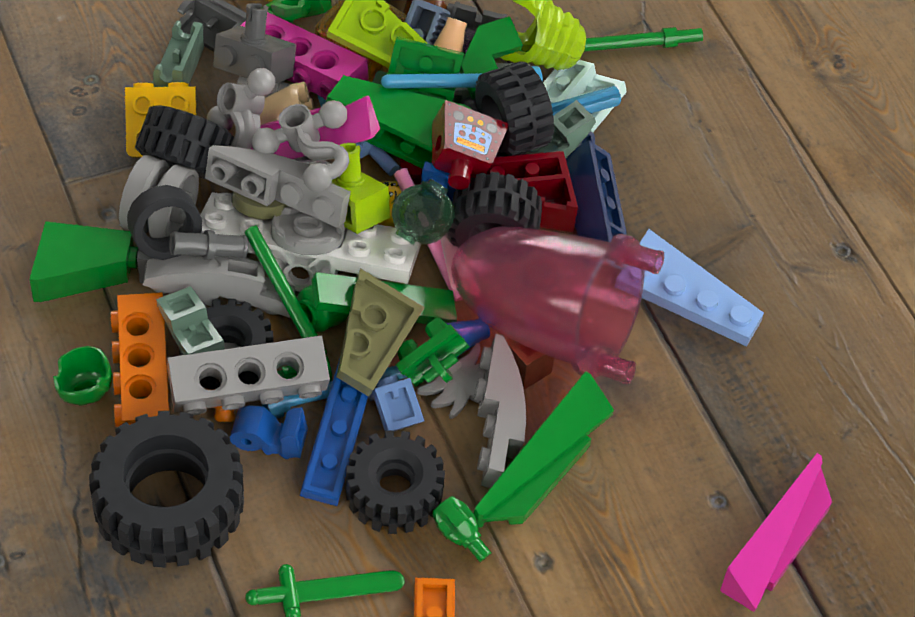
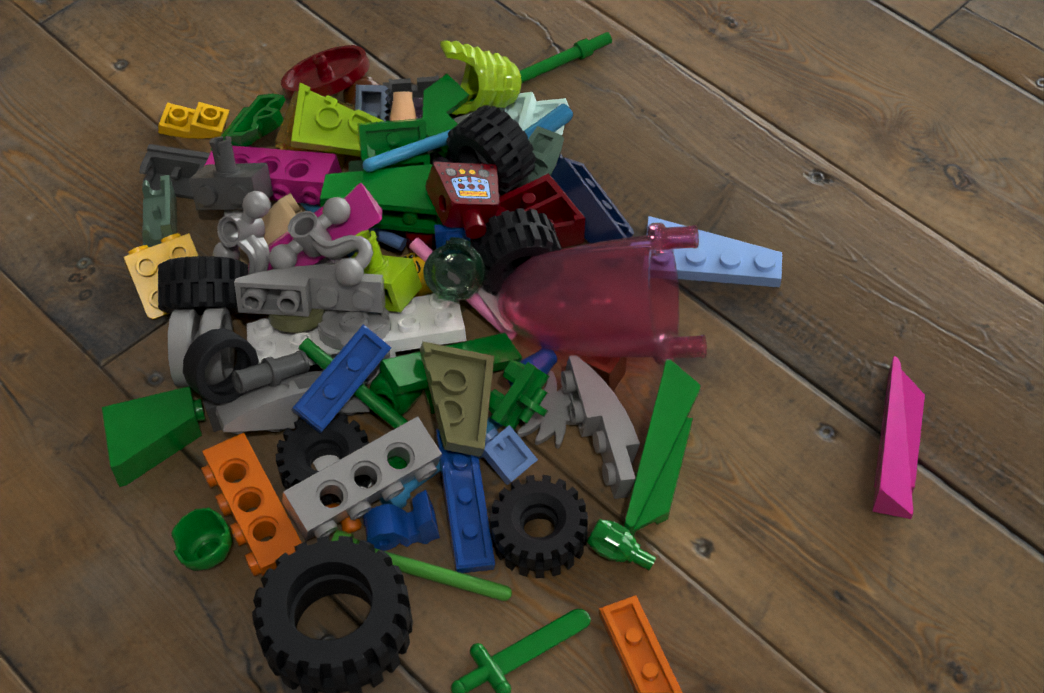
camera: 15 degrees left, 0 degrees up
(189, 322) = (284, 452): sand green slope -> none
(270, 275) = (341, 378): none -> blue tile
(284, 490) = (443, 575): none -> bright green piece

